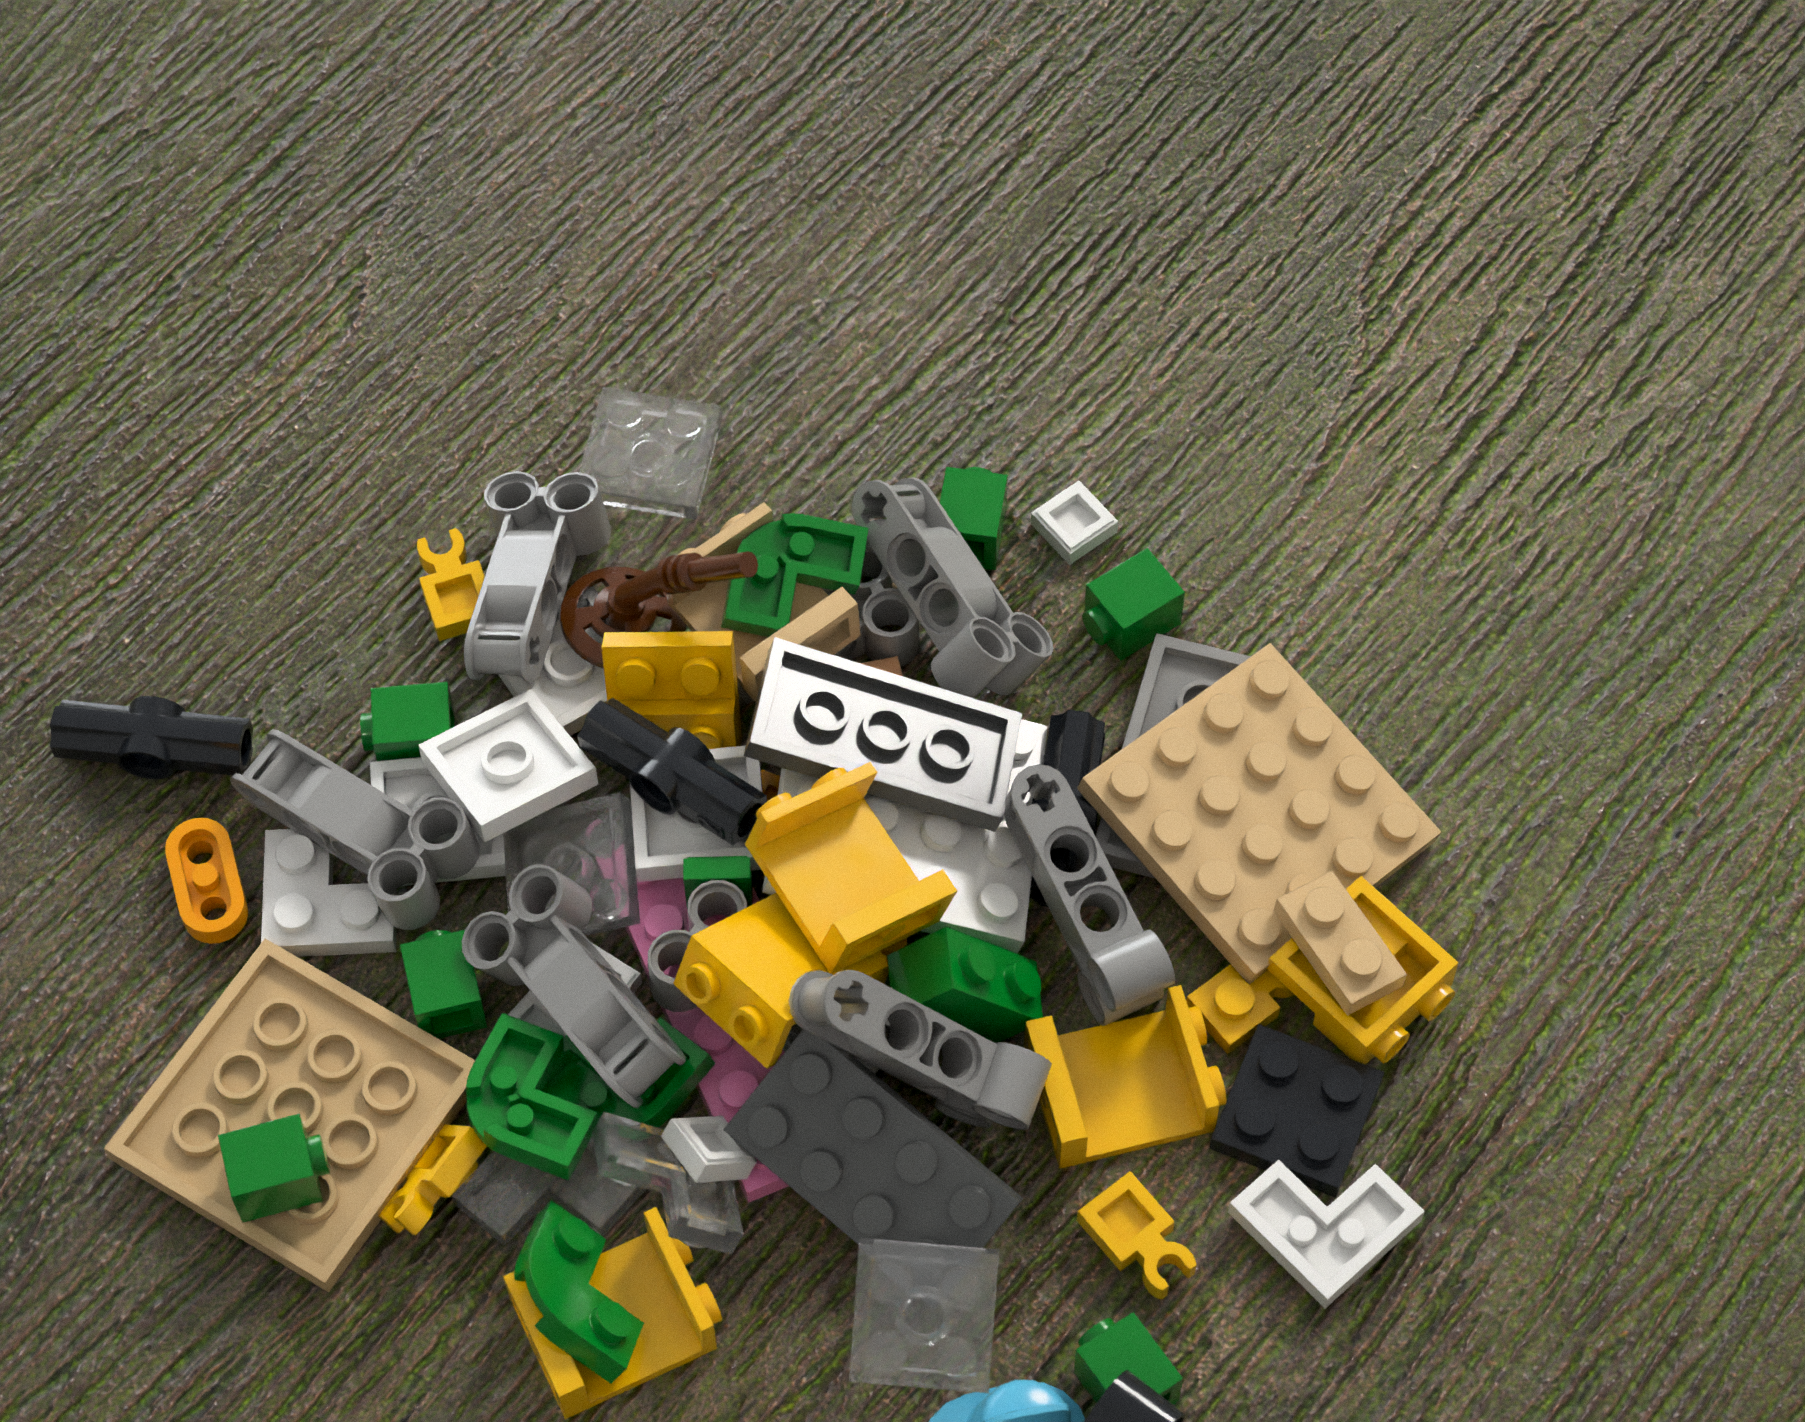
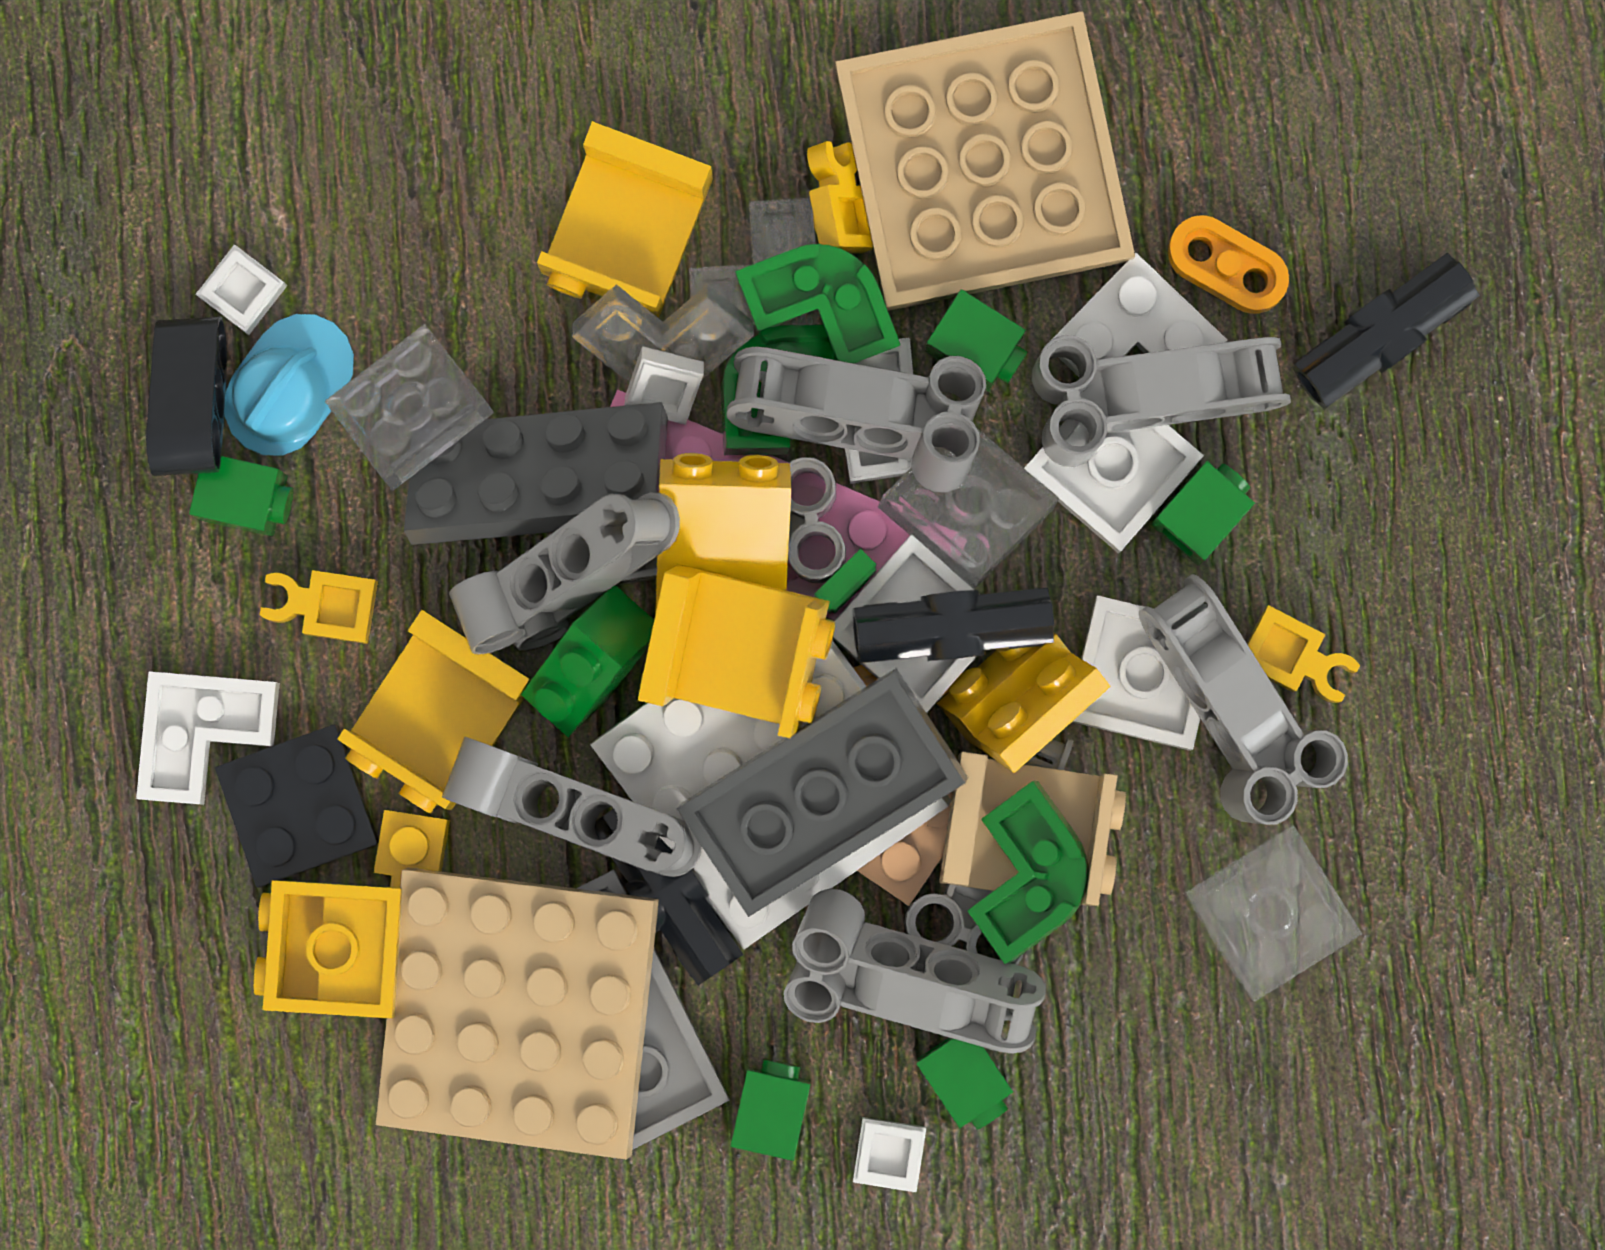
camera: 140 degrees right, 25 degrees up
(273, 1167) = (940, 92): green brick -> none
(508, 765) = (1087, 531): white plate -> none
(576, 1316) = (646, 184): green plate -> none
(634, 602) = (1125, 746): reddish brown dish -> none
(1339, 942) = (355, 941): tan plate -> none

